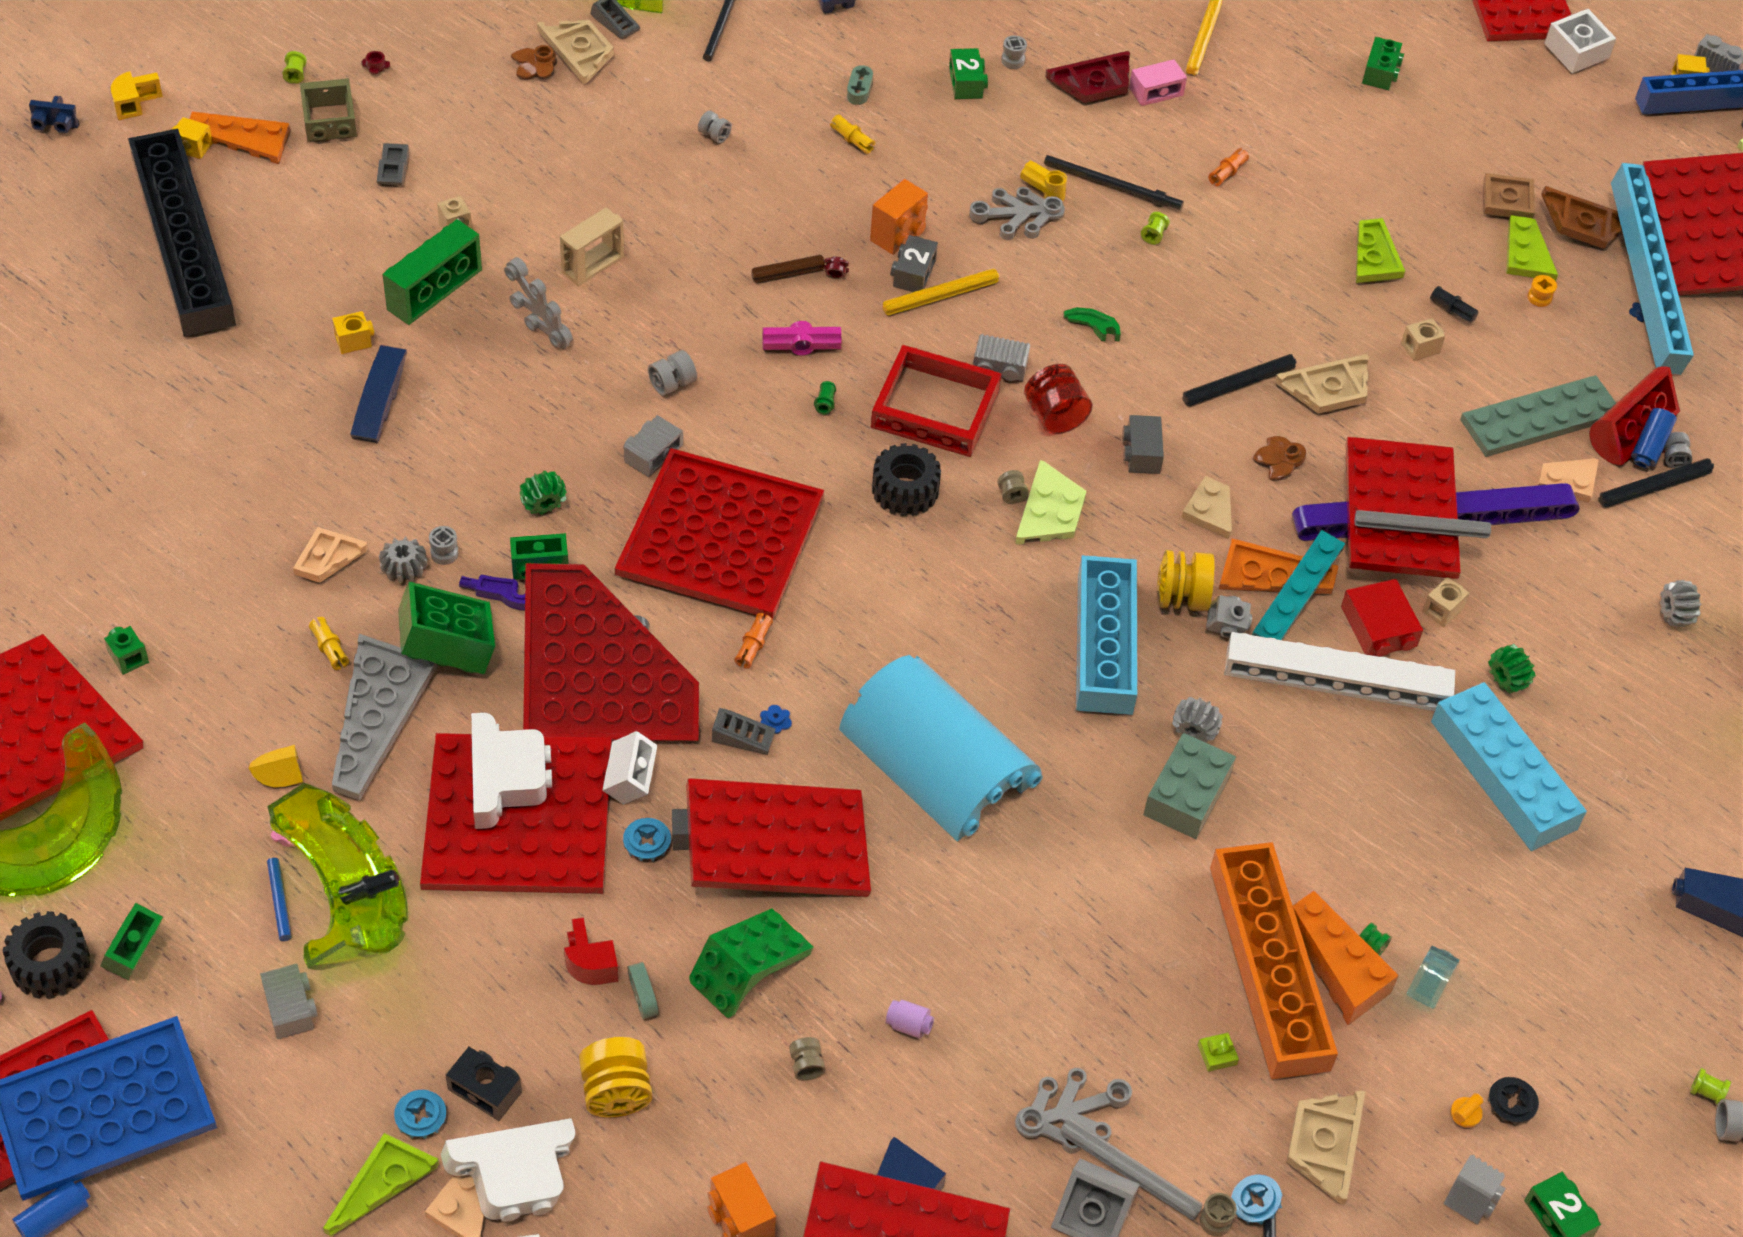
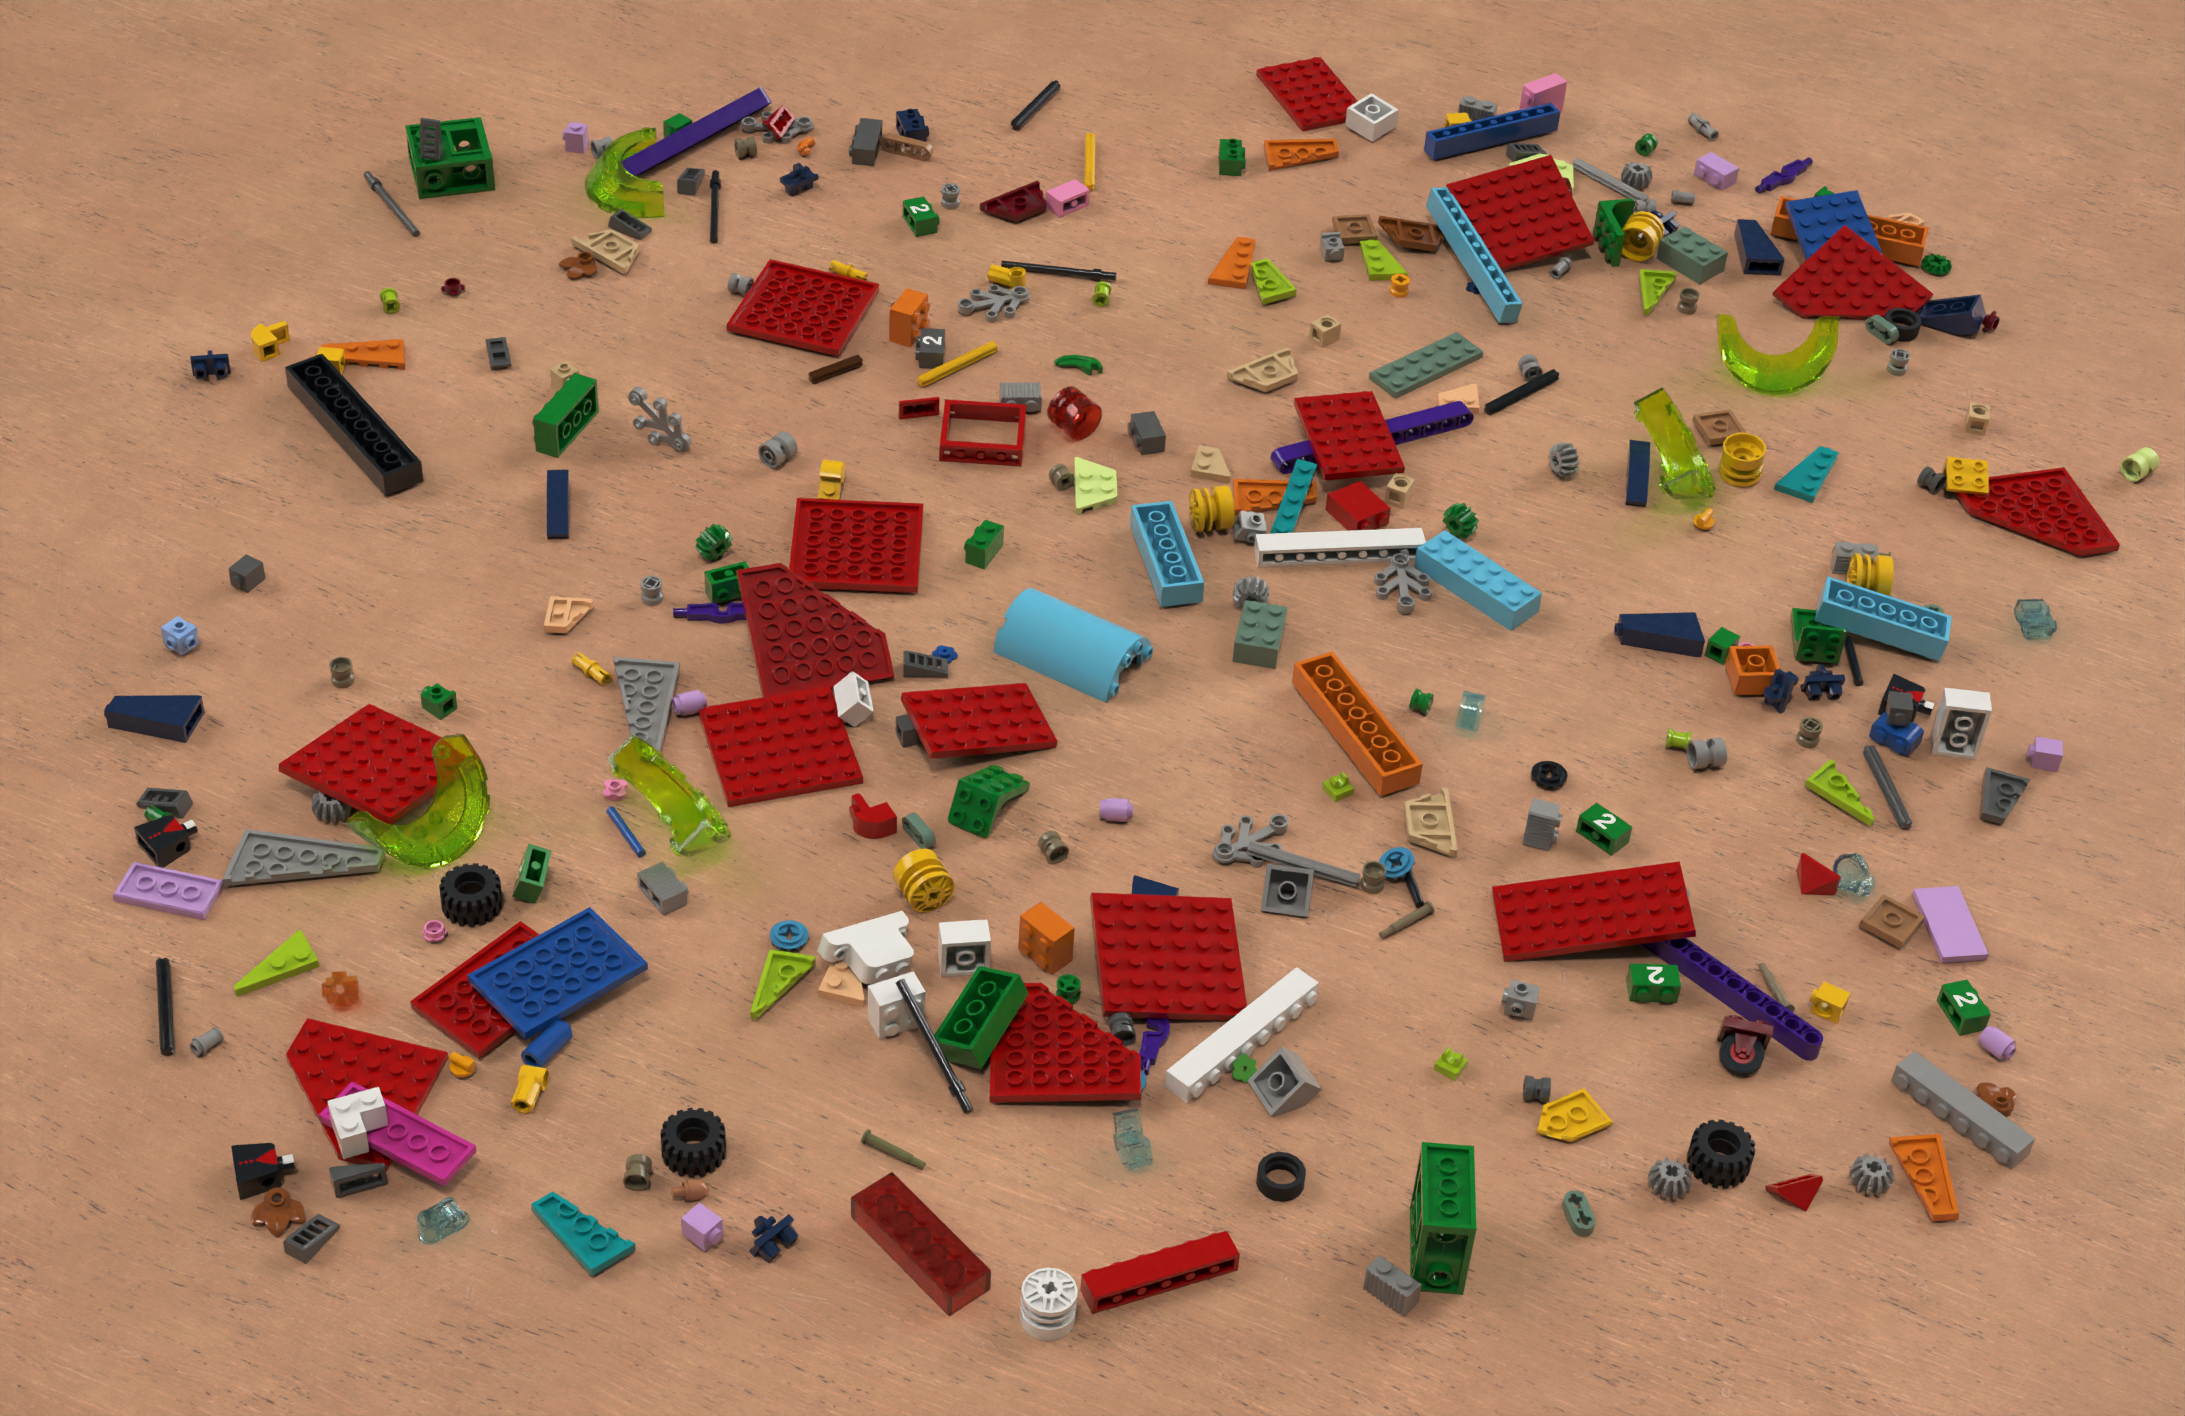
camera: 15 degrees left, 10 degrees down
(27, 581) = (341, 672): none -> dark tan wheel
(277, 768) = (590, 751): yellow brick -> none
(314, 96) = (435, 311): olive window -> none
(352, 332) = (518, 468): yellow brick -> none
(369, 886) = (695, 804): black axle -> none
(403, 560) = (624, 605): light grey gear -> none
(426, 723) = (689, 703): none -> lavender brick
(446, 628) = (679, 640): green slope -> none
(490, 1098) = (828, 907): black brick -> none
(506, 769) = (763, 714): white brick -> none
(583, 266) = (673, 387): tan window -> none
(629, 1199) = (963, 947): none -> white brick
(647, 828) = (881, 736): dark azure gear -> none
(651, 445) = (781, 499): light grey brick -> none
(722, 426) = (831, 478): none -> yellow brick
(753, 640) = (909, 607): orange pin -> none
(779, 174) = (803, 307): none -> red plate
(801, 338) = (865, 411): dark pink piece -> none
(824, 402) = (899, 448): green pin -> none
(836, 267) = (872, 360): dark red plate -> none
(856, 84) = (840, 234): sand green beam -> none
(868, 347) = (918, 408): none -> red slope
(879, 567) = (984, 544): none -> green brick
(906, 495) = (981, 485): black tyre -> none
(1228, 167) = (1141, 245): orange pin -> none
(1239, 379) = (1200, 381): black axle -> none
(1279, 456) = (1249, 423): dark orange plate -> none
(1339, 218) = (1235, 264): none -> orange wing
(1343, 959) = (1411, 717): orange wedge -> none
(1407, 742) = (1401, 564): none -> light grey plant
(1422, 524) = (1368, 440): light grey axle -> none
(1454, 304) = (1339, 305): black axle -> none
(1465, 70) = (1298, 151): none -> orange wing
(1467, 1110) = (1520, 787): light orange plate -> none
(1471, 217) = (1331, 247): none -> light grey brick
(1620, 427) = (1494, 351): red brick -> none
(1653, 438) = (1511, 361): blue brick -> none

